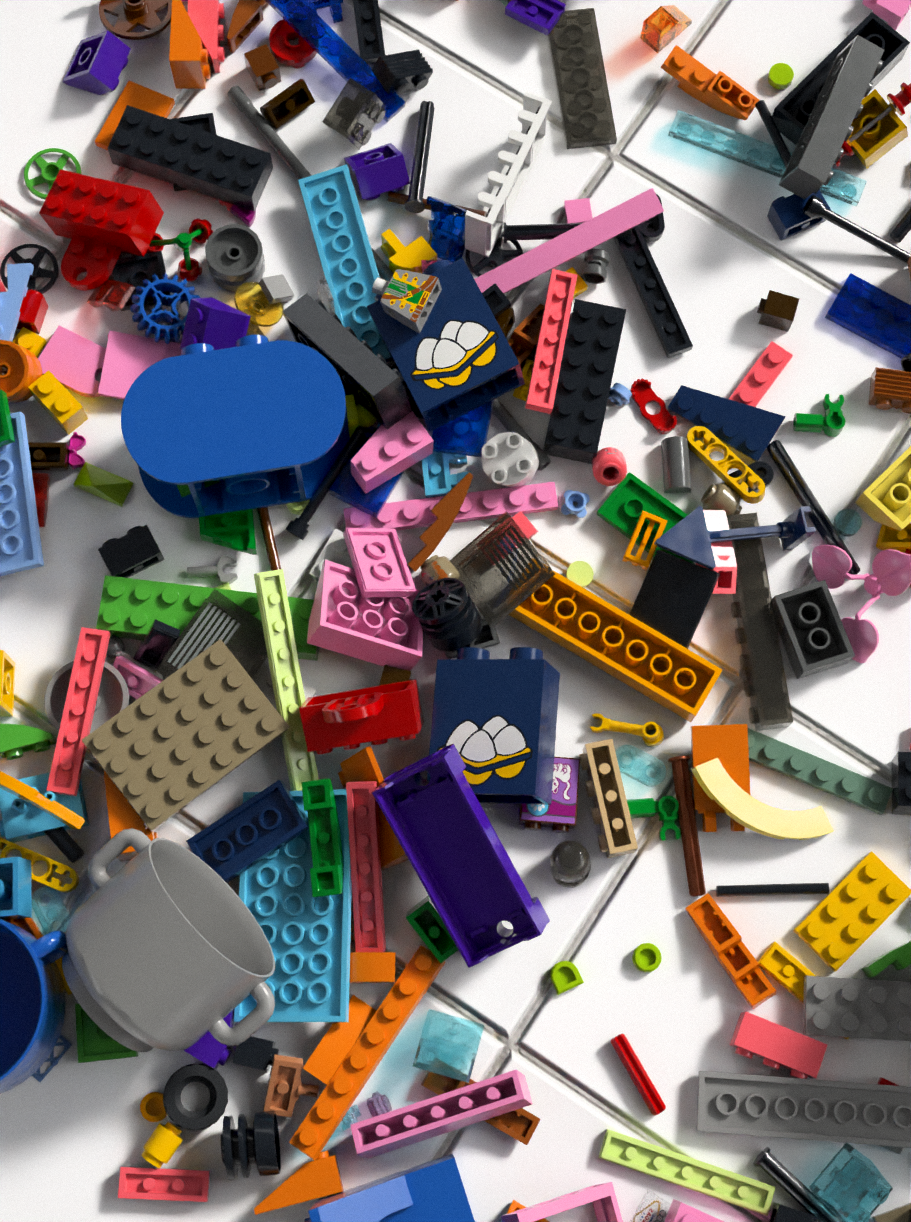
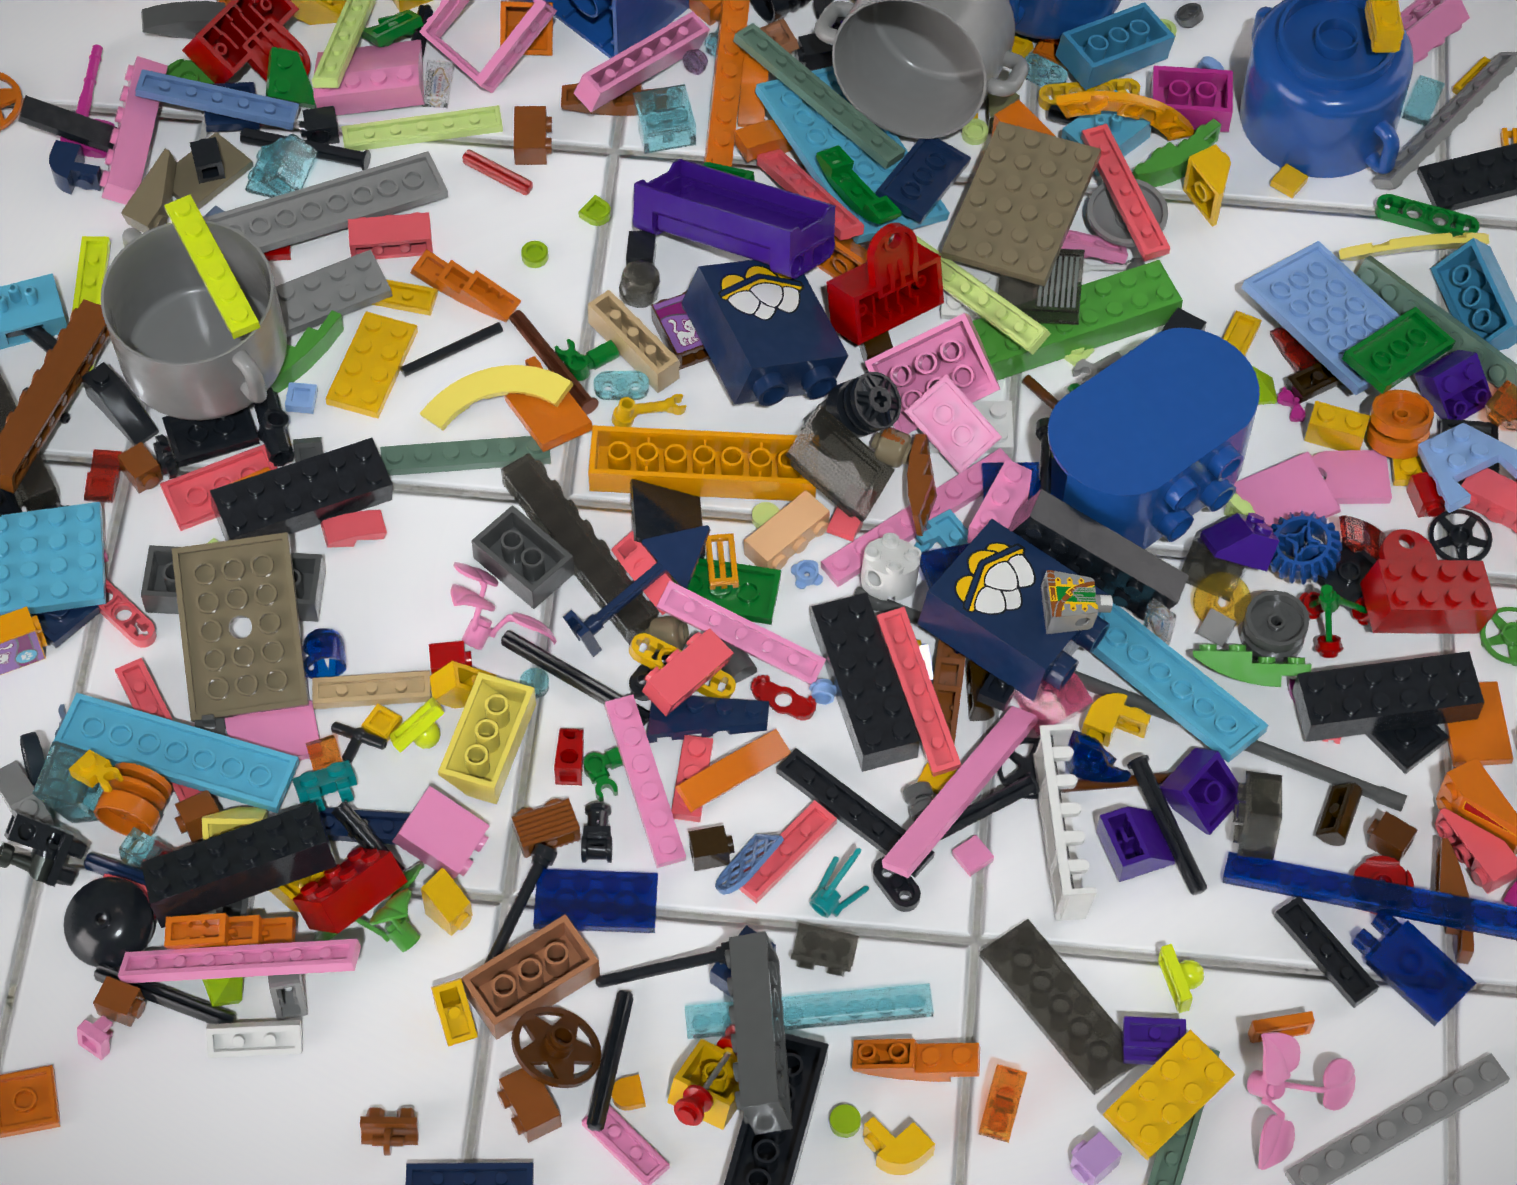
camera: 155 degrees right, 15 degrees down
(74, 536) = (1242, 331): none -> yellow tile
(156, 644) = (1099, 273): black tile -> none
(278, 238) = (1238, 664): none -> bright green slope
(294, 978) = (819, 95): none -> sand green plate
(402, 71) = (1245, 897): black brick -> none
(455, 153) = (1133, 842): none -> dark purple slope
(483, 49) = (1180, 977): none -> neon yellow tile
(553, 897) = (641, 246): none -> black brick
(576, 542) = (787, 532): none -> light nougat brick
(587, 1097) = (531, 135): none -> dark orange brick
(609, 466) = (793, 611): coral head -> none
(668, 460) = (741, 633): none -> bright pink plate
(707, 230) = (826, 898): none -> teal plant
(720, 281) = (798, 841): none -> coral plate
(730, 444) = (686, 671): none -> coral brick
(733, 191) = (825, 948): none -> clear smoke bracket
(734, 357) = (733, 770): none -> orange slope
(756, 31) = (899, 1154): none -> yellow brick
(762, 262) = (741, 858): none -> medium blue window
(773, 131) = (816, 1033): black bar -> none
(803, 387) = (645, 781): none -> bright pink plate
(851, 439) = (569, 757): none -> red leg
(861, 363) = (597, 838): none -> black connector

